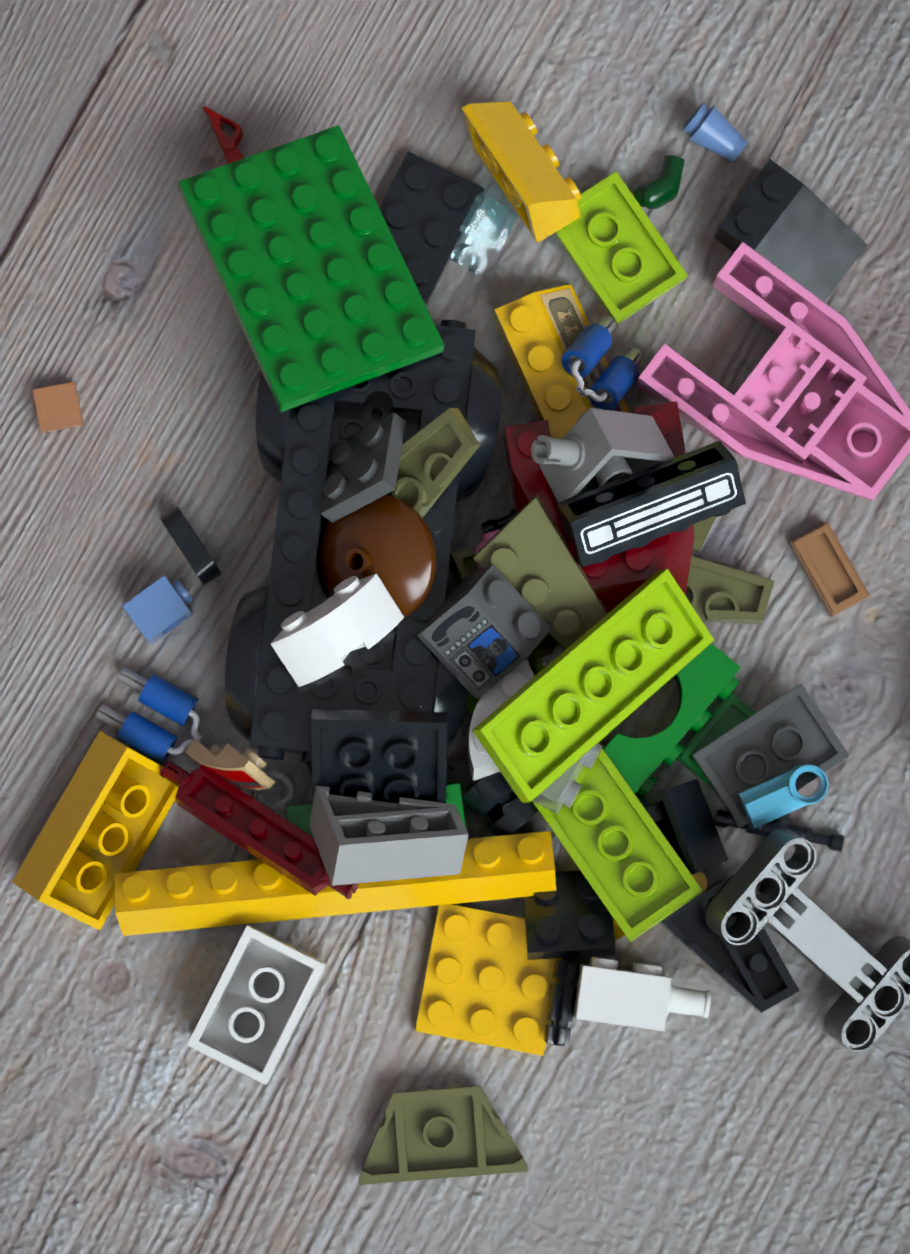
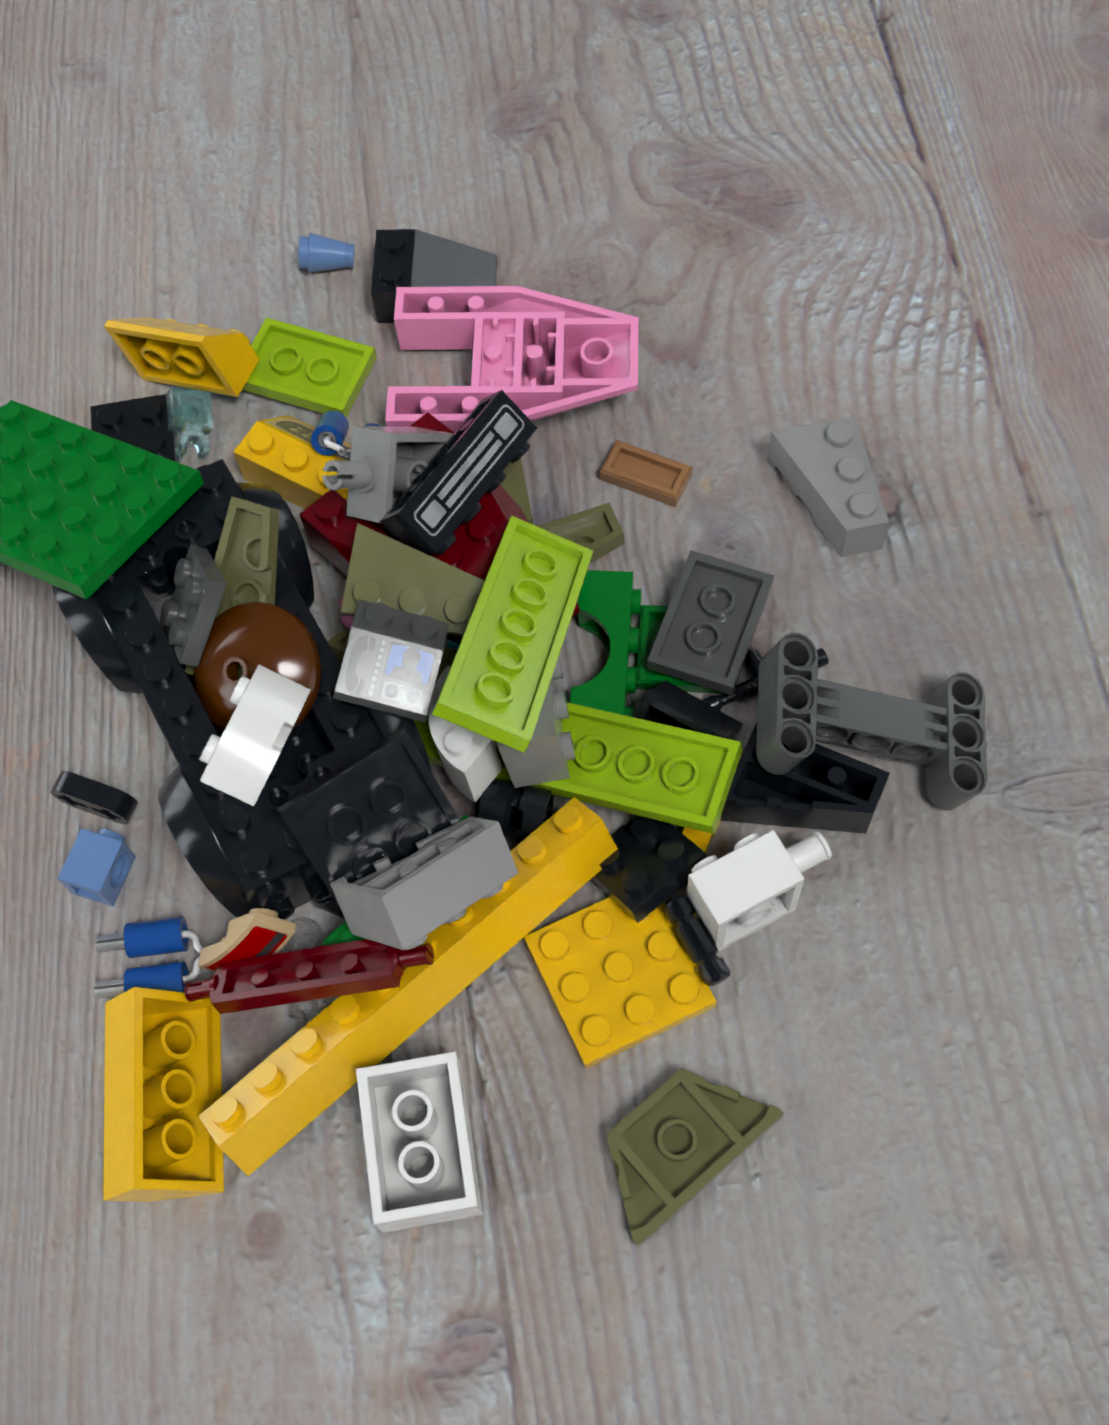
camera: 30 degrees left, 20 degrees down
(663, 189) = (313, 310): dark green arm -> none
(779, 795) = (745, 629): medium azure piece -> none

